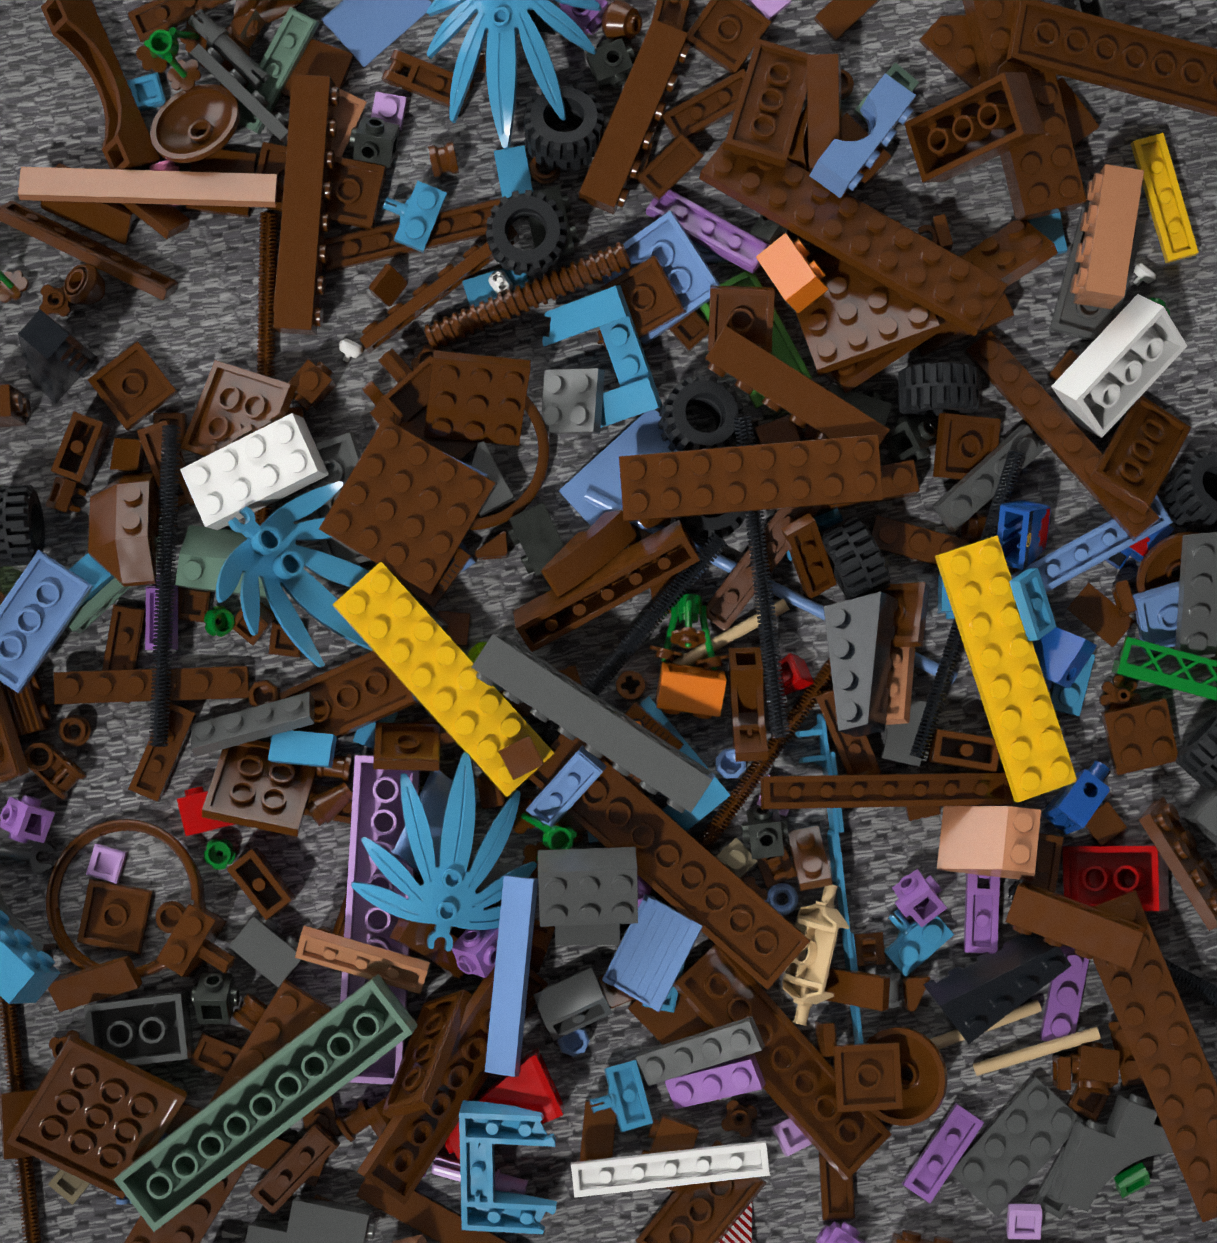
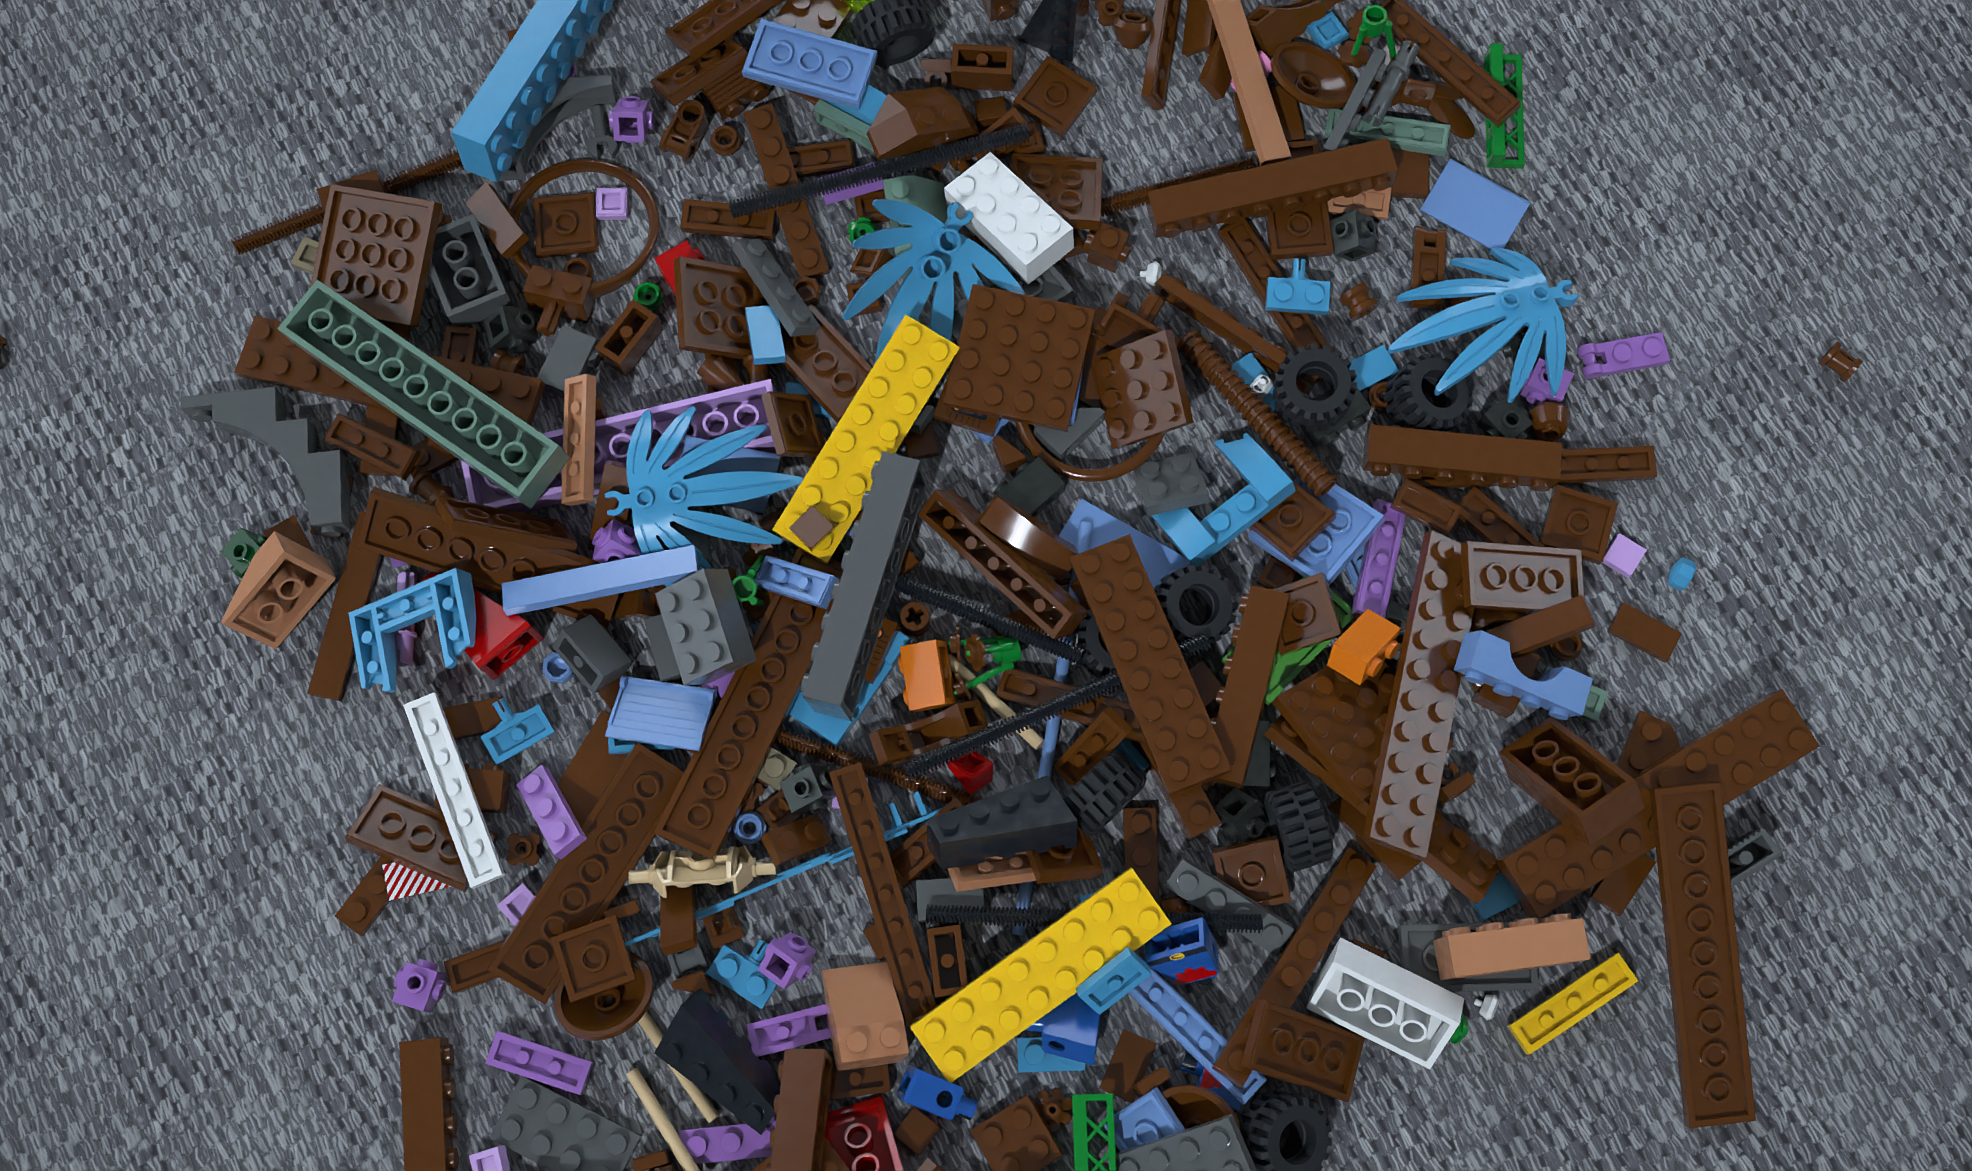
camera: 70 degrees right, 10 degrees down
(387, 285) = (1223, 287): reddish brown slope -> none
(389, 108) = (1389, 242): lavender plate -> none
(700, 1051) = (577, 787): dark grey plate -> none
(727, 765) = (861, 737): medium blue tile -> none

